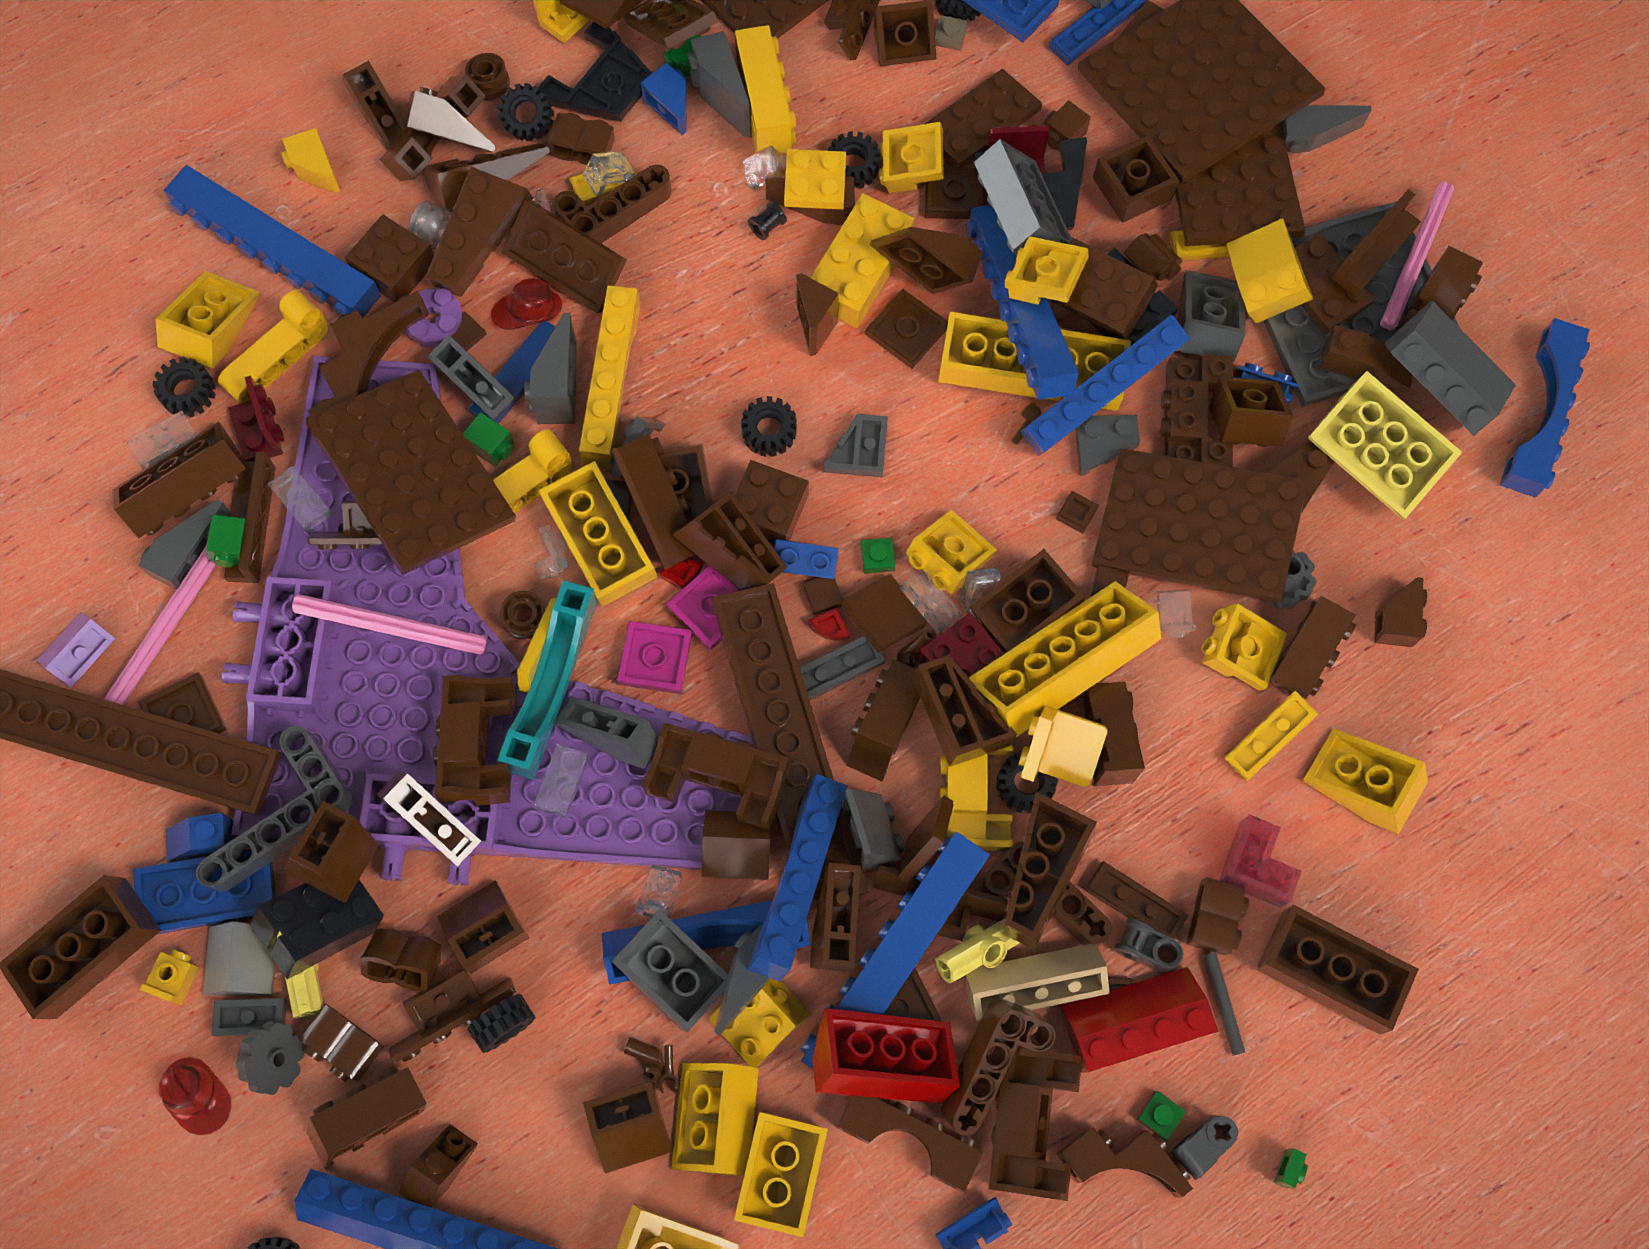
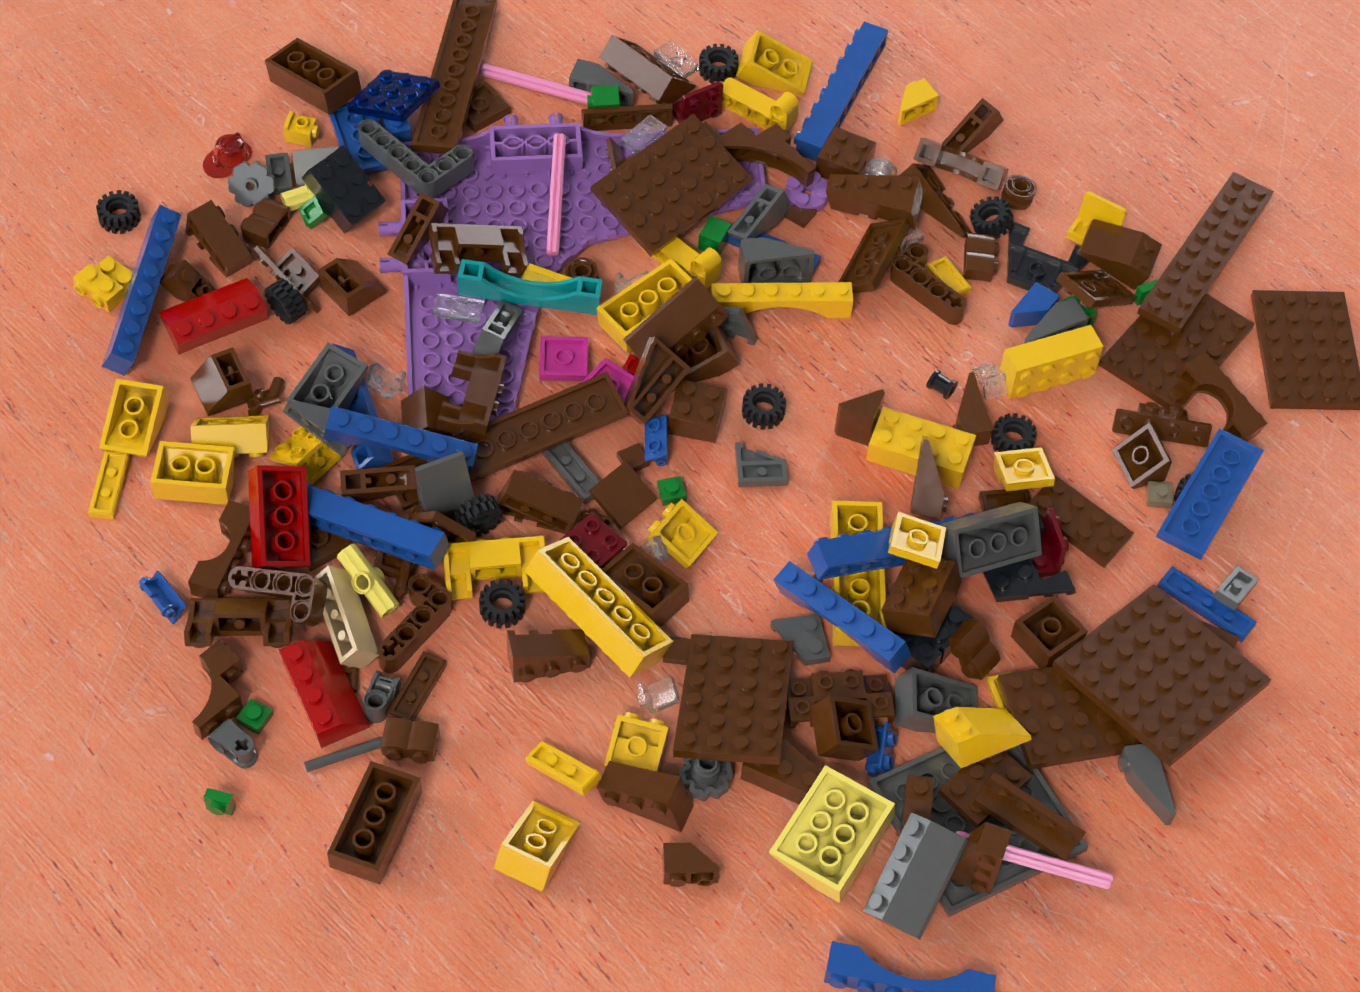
camera: 80 degrees right, 15 degrees down
(75, 649) = (515, 43): medium lavender panel -> none
(150, 831) = (393, 95): none -> clear blue plate
(332, 852) = (384, 179): reddish brown slope -> none
(336, 972) = (313, 212): none -> green plate
(401, 959) = (323, 241): reddish brown brick -> none
(438, 118) = (962, 161): slope -> none
(501, 1132) = (214, 315): none -> red slope
(527, 304) = (831, 245): clear red piece -> none
(607, 169) = (955, 273): clear bracket -> none
(815, 179) = (979, 402): yellow plate -> none
(830, 625) = (608, 464): red tile -> none
(902, 793) = (479, 514): none -> black tyre
(907, 328) = (873, 486): reddish brown tile -> none
(931, 601) = (636, 527): clear plate -> none
(958, 713) = (538, 528): reddish brown wedge -> none
(1048, 860) = (425, 600): reddish brown wedge -> none
(1063, 747) = (526, 598): yellow bracket -> none
(1066, 124) = (1088, 582): reddish brown brick -> none
(1077, 512) = (735, 623): reddish brown tile -> none
(1252, 868) = (452, 756): clear pink brick -> none

